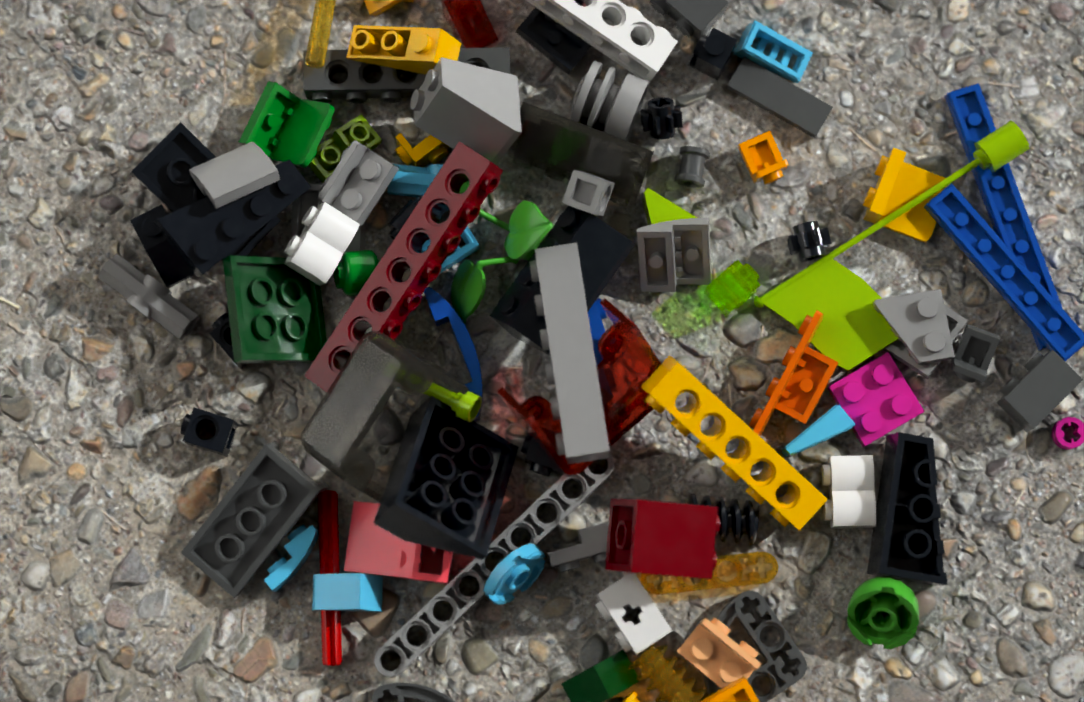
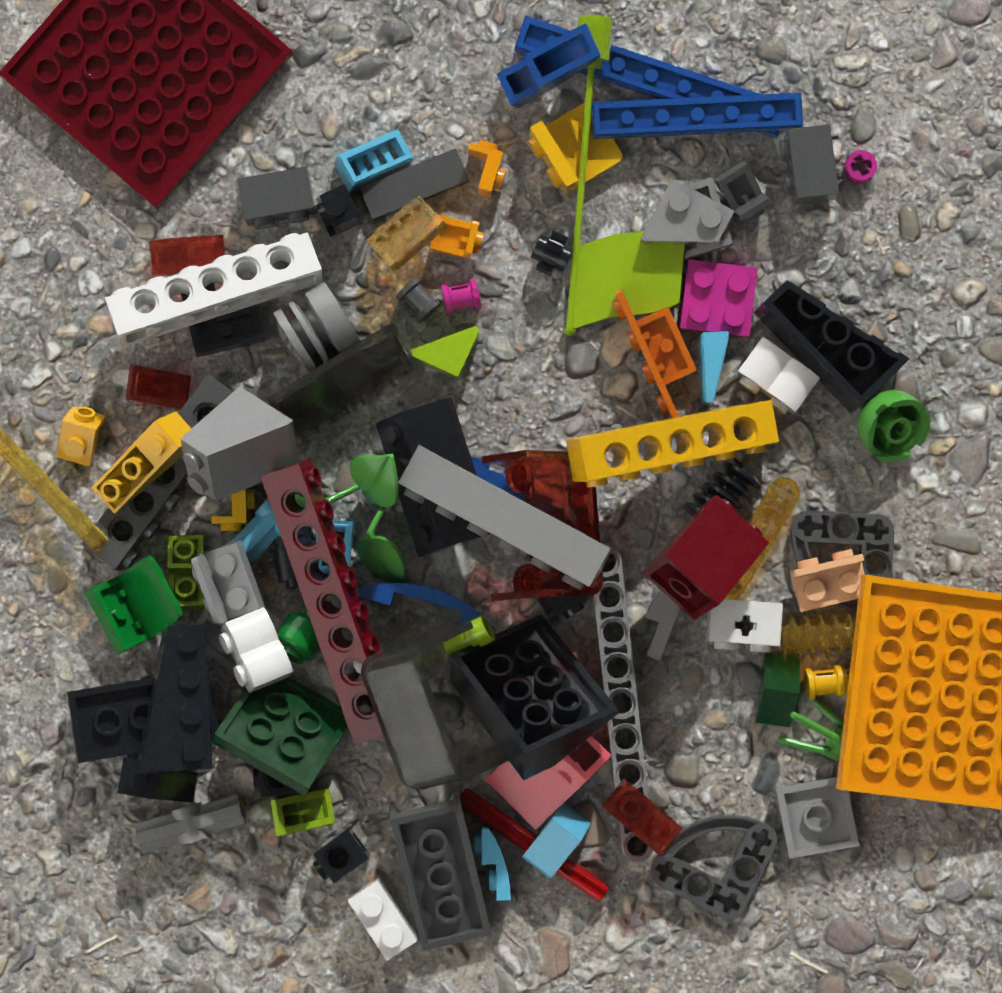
camera: 50 degrees left, 5 degrees up
(184, 501) = (383, 918): none -> white brick
(221, 375) = (302, 812): none -> lime slope
(235, 174) = (147, 679): light grey slope -> none
(416, 645) = (642, 817): none -> clear red slope
(514, 572) = (642, 694): medium azure tile -> none
(588, 192) = (381, 402): light grey brick -> none
(661, 118) = (360, 294): black gear -> none
(674, 254) = (481, 370): light grey slope -> none
(719, 197) = (461, 297): none -> dark pink bush
(733, 287) = (543, 342): clear neon green brick -> none
(736, 116) = (406, 233): none -> clear yellow bracket
(834, 149) = (492, 174): none -> light orange bracket
(952, 127) = (549, 66): none -> blue slope

